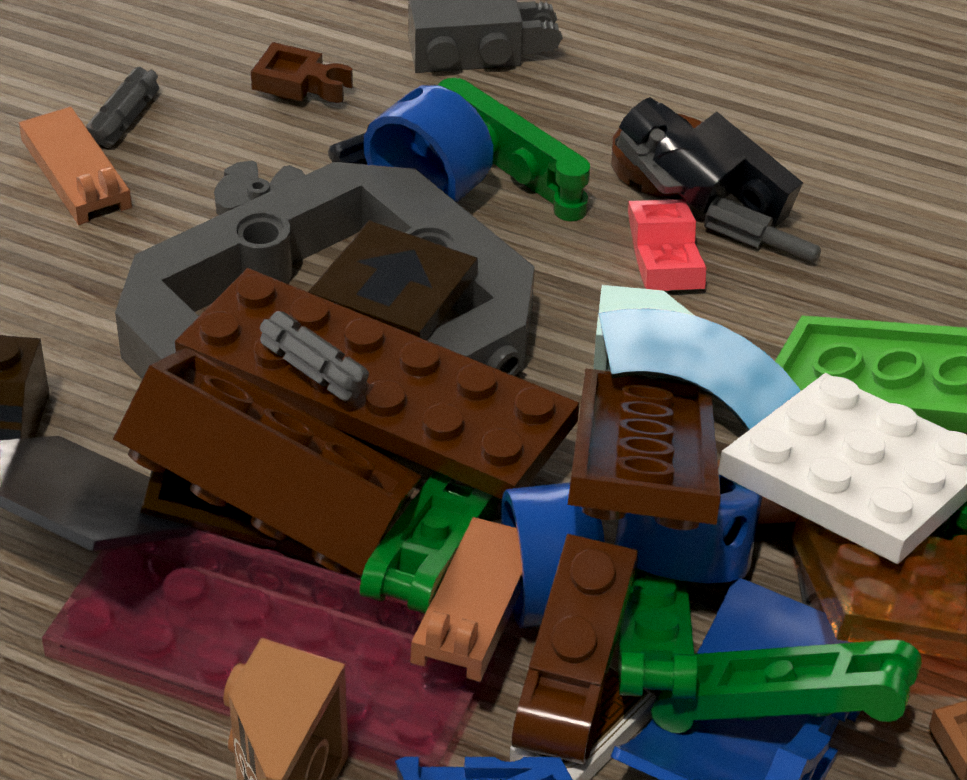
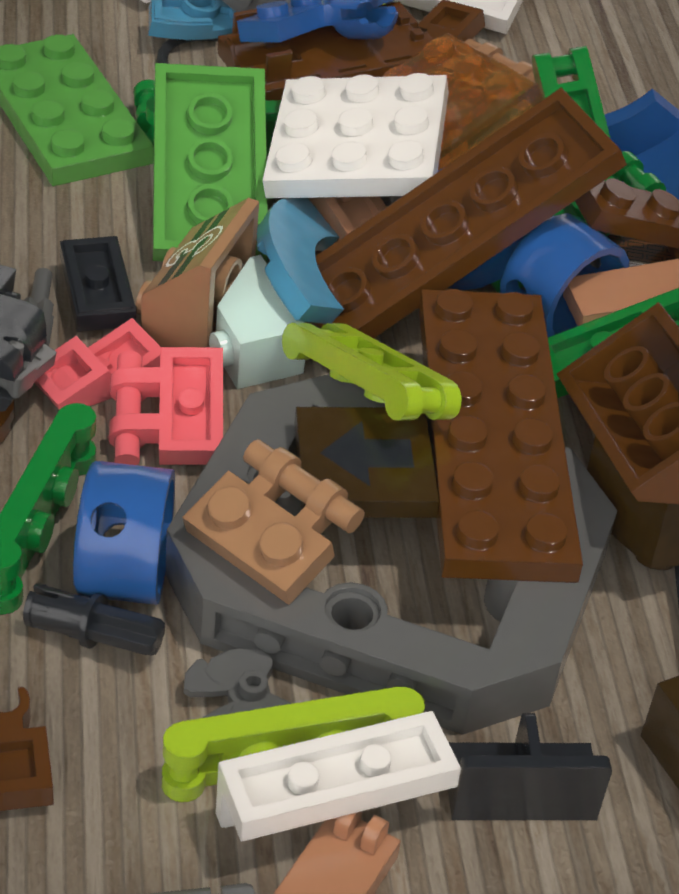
camera: 125 degrees left, 0 degrees up
(59, 285) = (528, 779): none -> black panel
(134, 173) = (334, 776): none -> white panel
(191, 192) = (198, 745): none -> lime plate
(314, 356) = (544, 429): dark grey axle -> none
(359, 191) = (261, 536): none -> medium nougat plate
(486, 309) = (383, 372): none -> lime plate
(580, 251) = (189, 405): none -> coral plate
(716, 292) = (184, 295): none -> medium nougat slope
(777, 273) = (97, 283): none -> black plate

